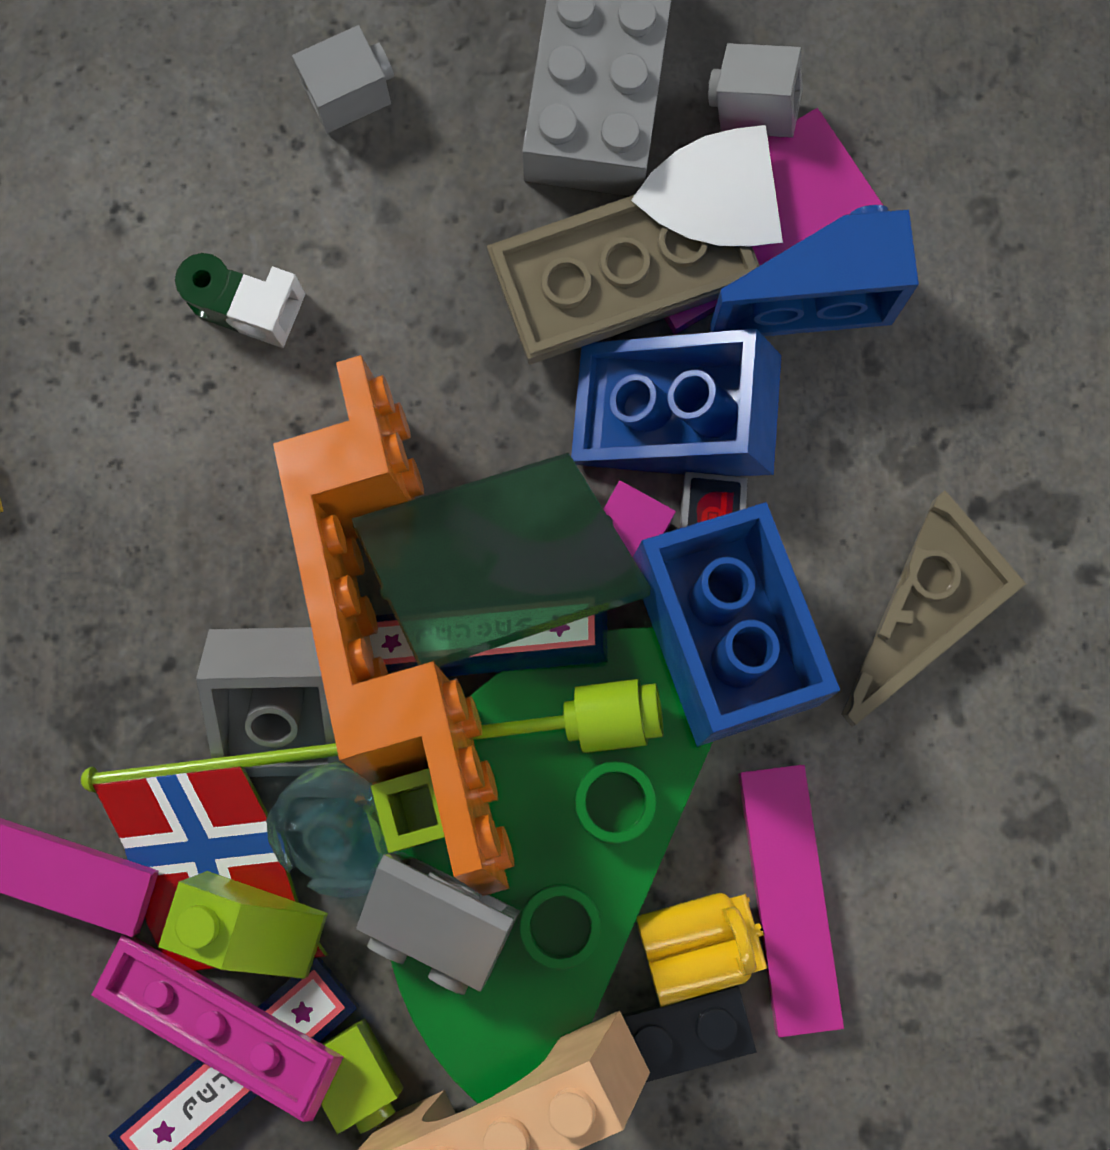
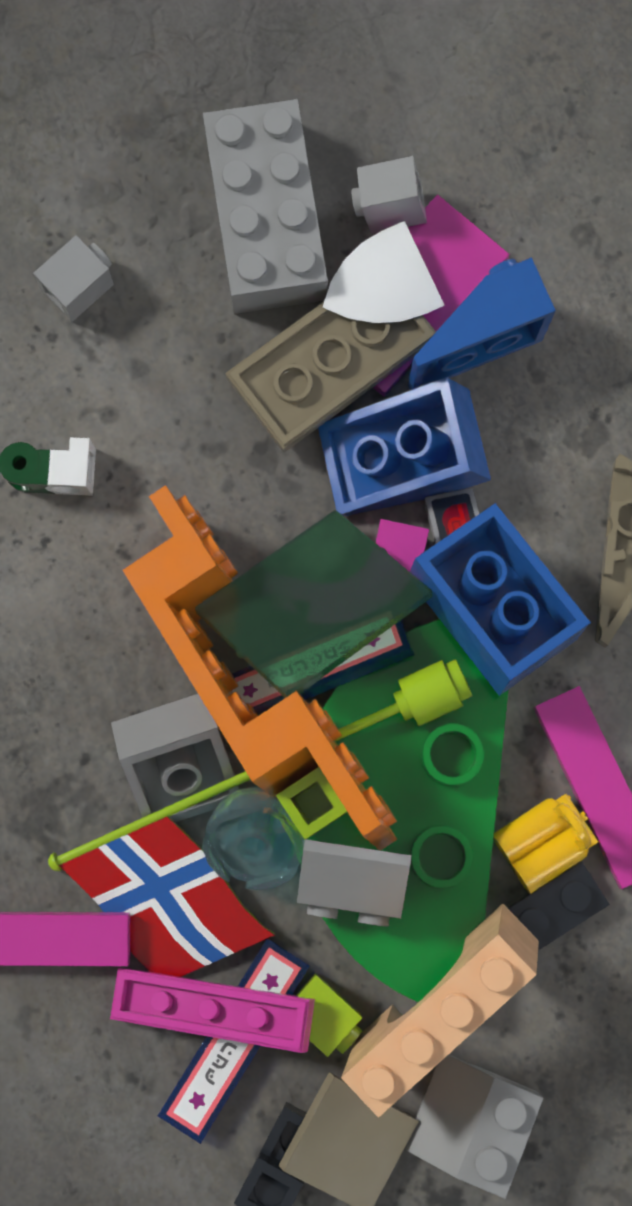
camera: 20 degrees left, 0 degrees up
(241, 927) = (209, 931): lime slope -> none

